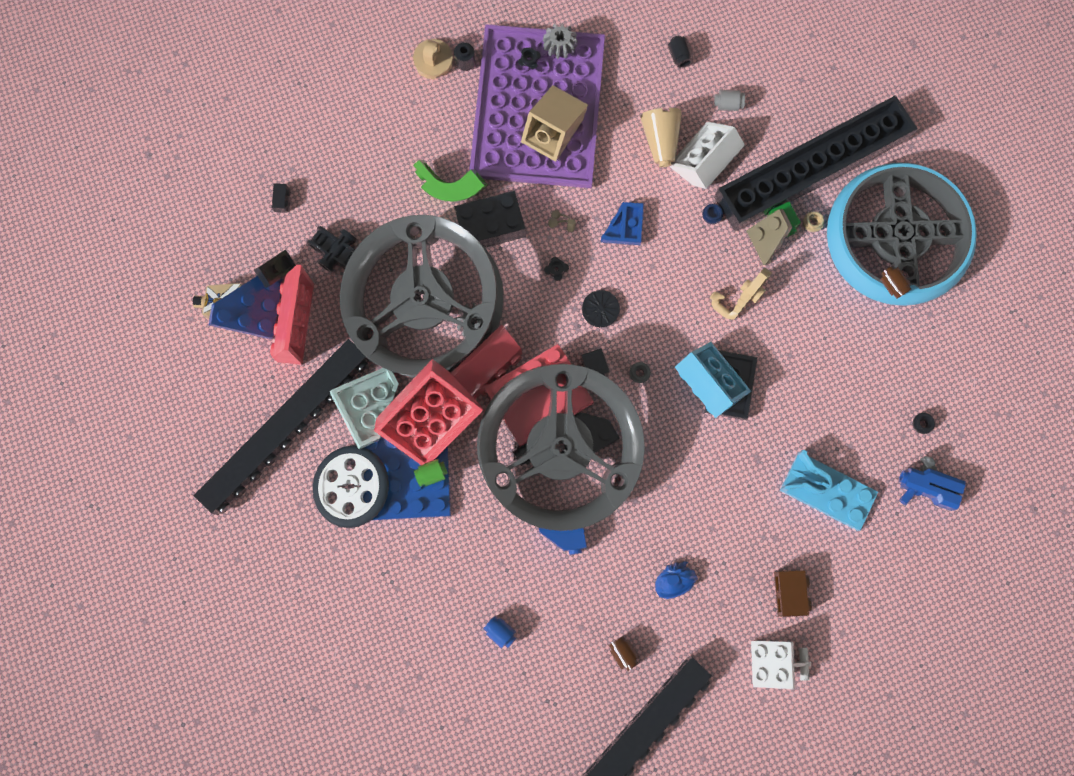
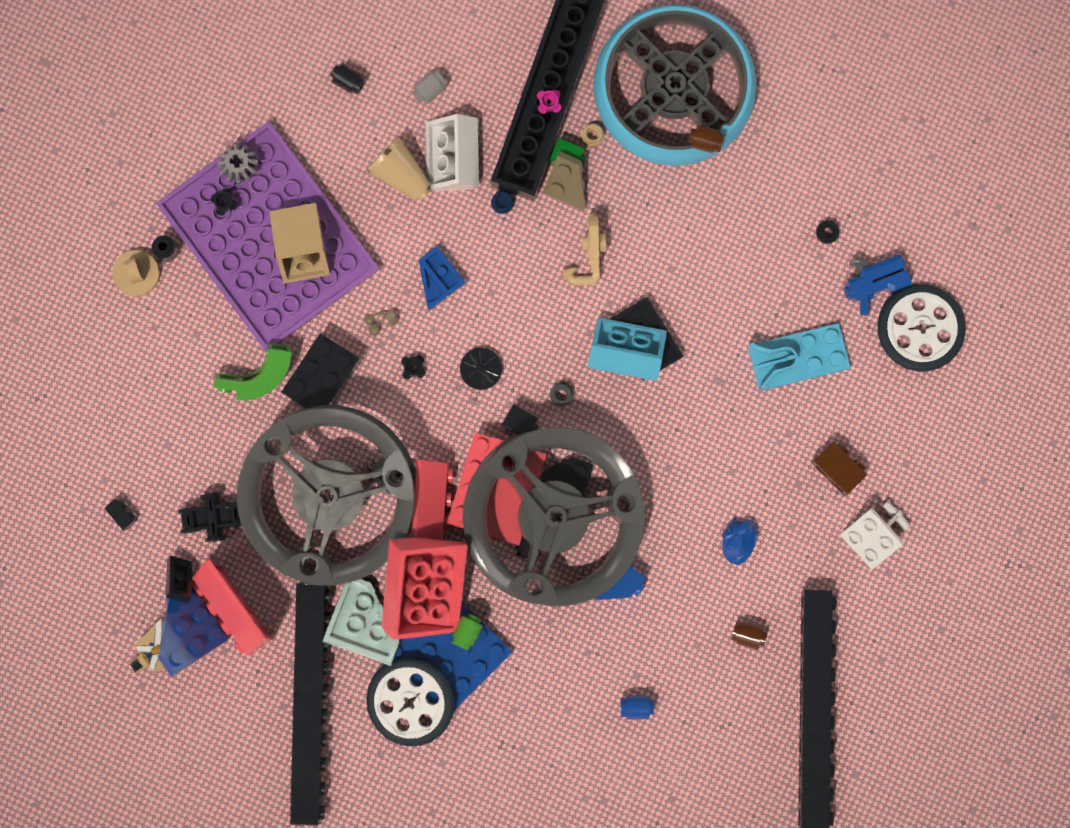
camera: 45 degrees left, 5 degrees up
(808, 165) = (549, 95): none -> dark pink plate
(961, 533) = (940, 352): none -> wedge

